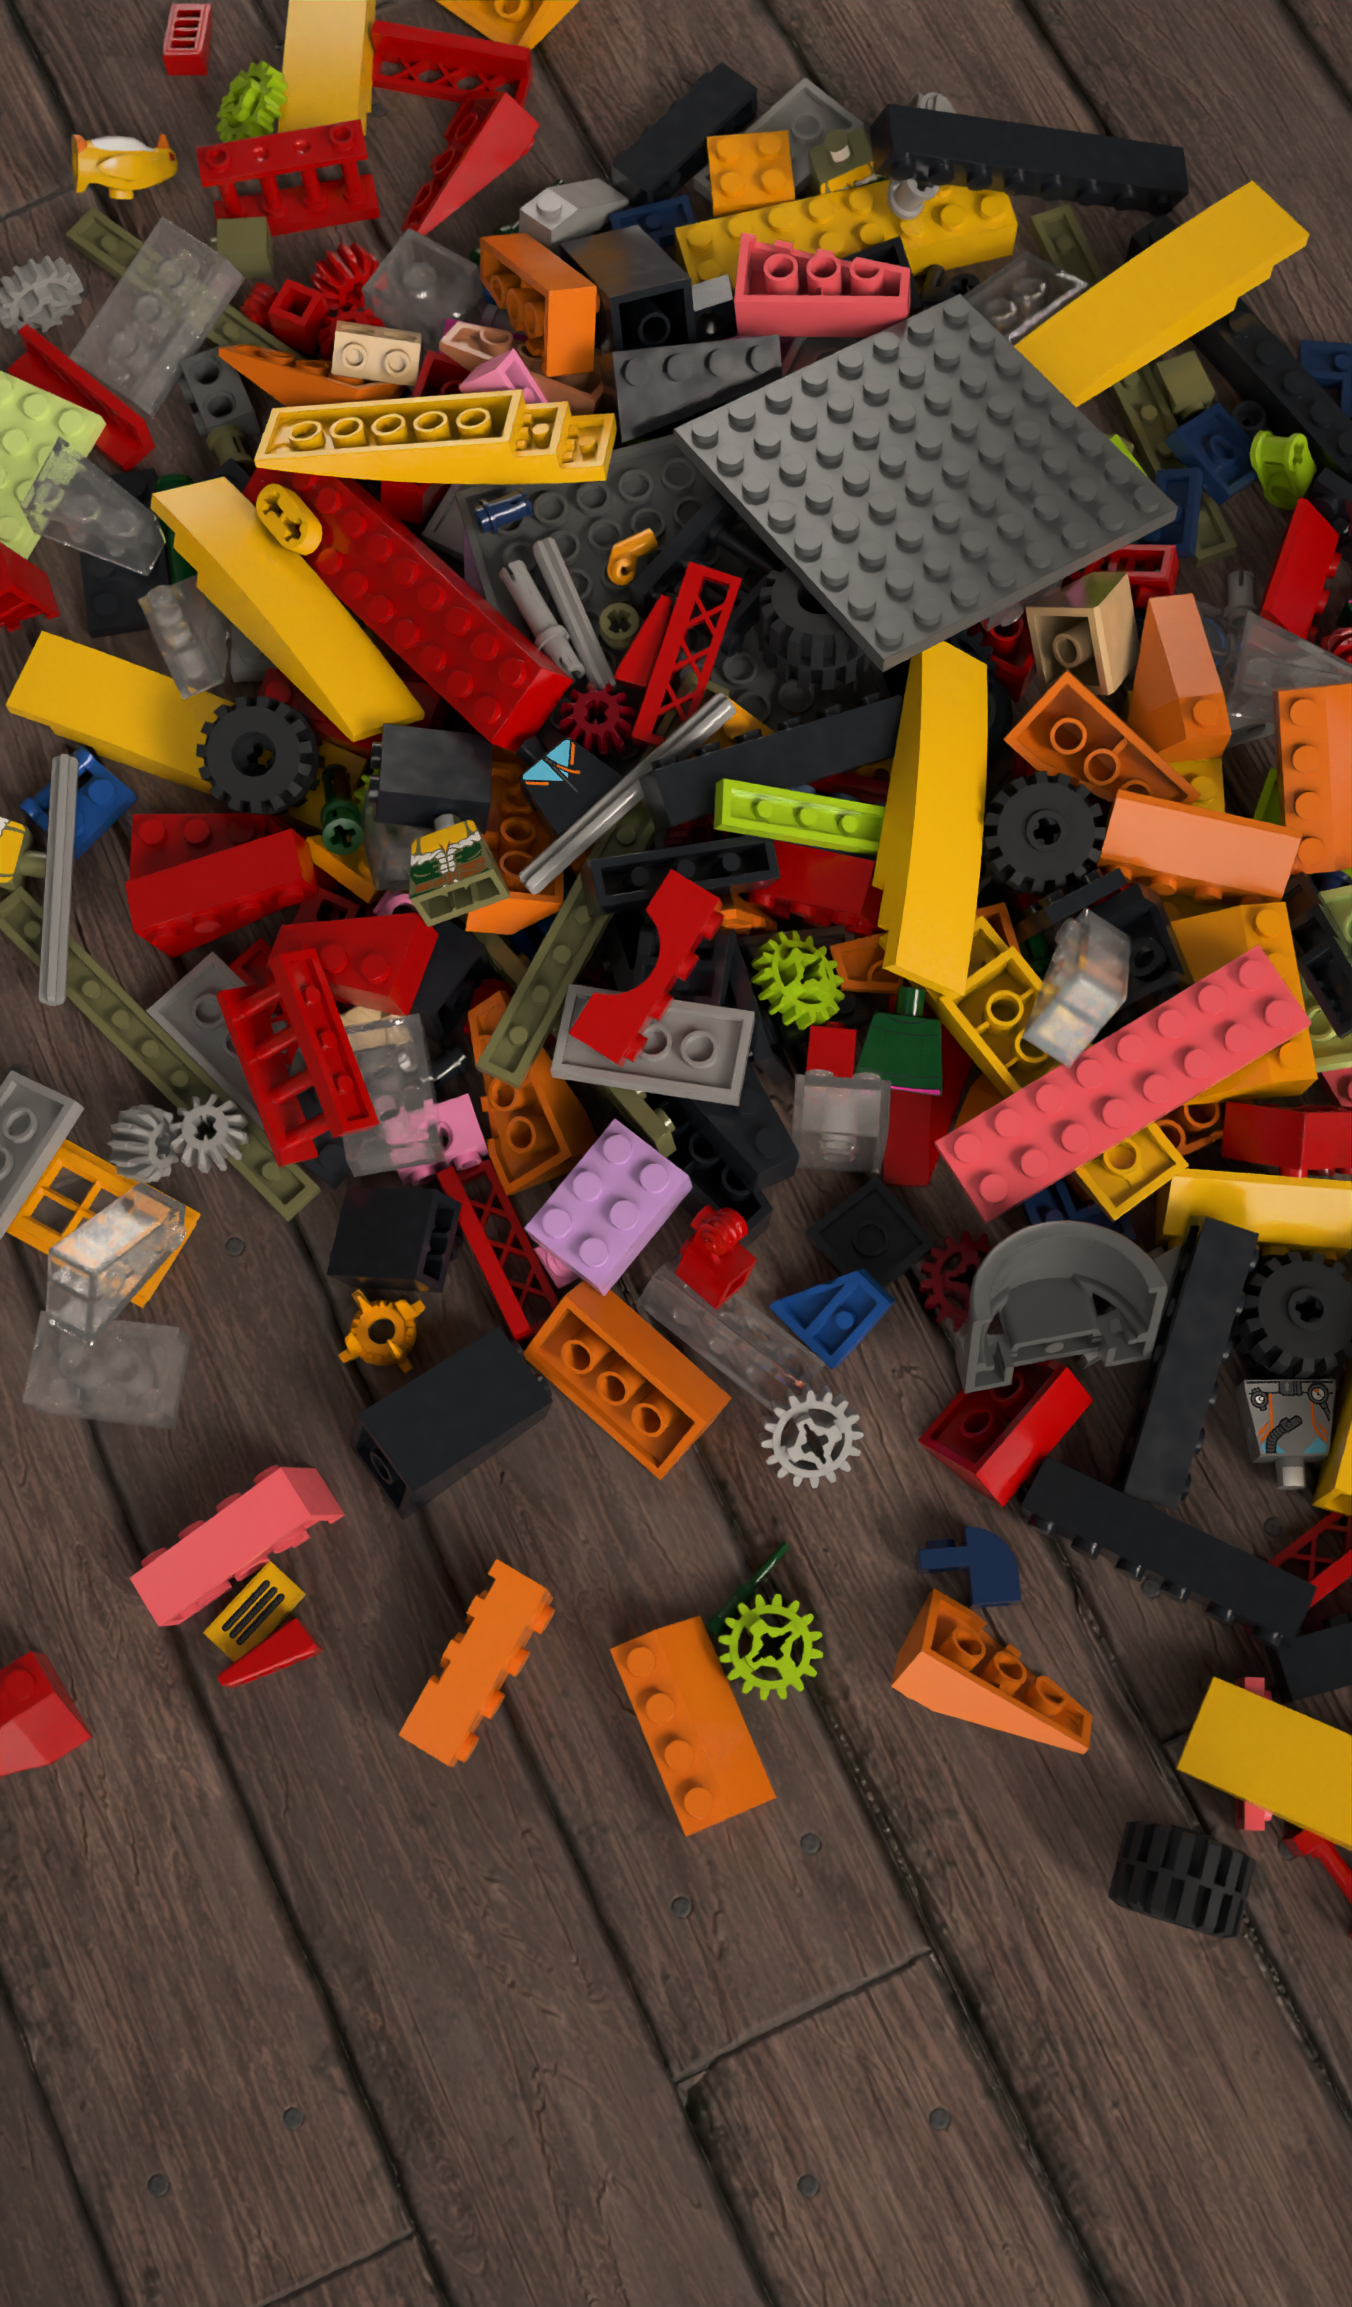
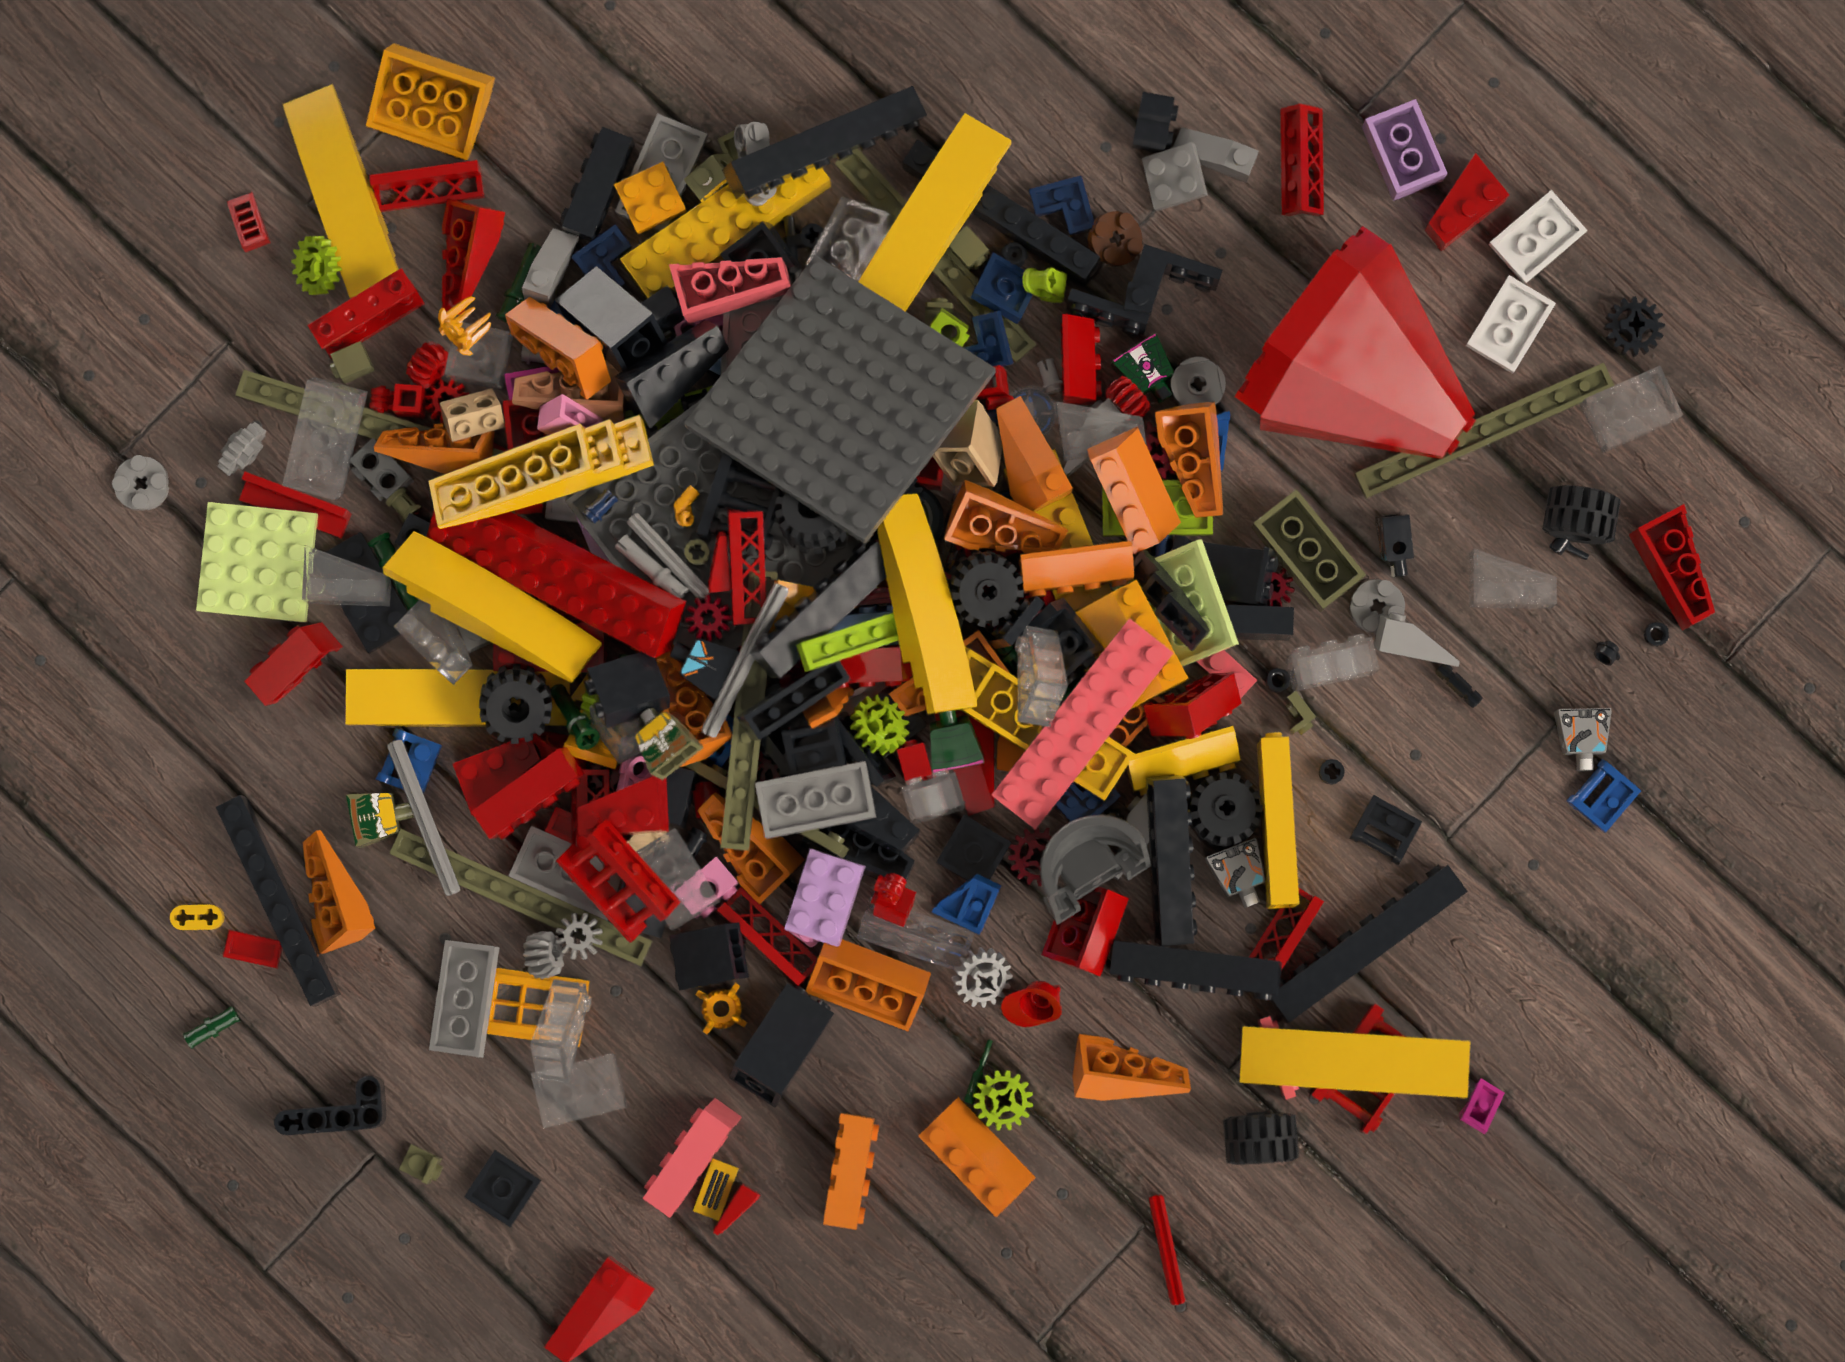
camera: 20 degrees left, 10 degrees up
(121, 164) = (249, 334): yellow animal -> none
(293, 513) = (471, 549): yellow beam -> none
(400, 227) = (453, 327): none -> light orange piece
(616, 1022) = (792, 801): red arch -> none
(876, 1511) = (1033, 1005): none -> red piece
(951, 2010) = (1166, 1249): none -> red axle
(987, 1564) = (1102, 1009): dark blue brick -> none

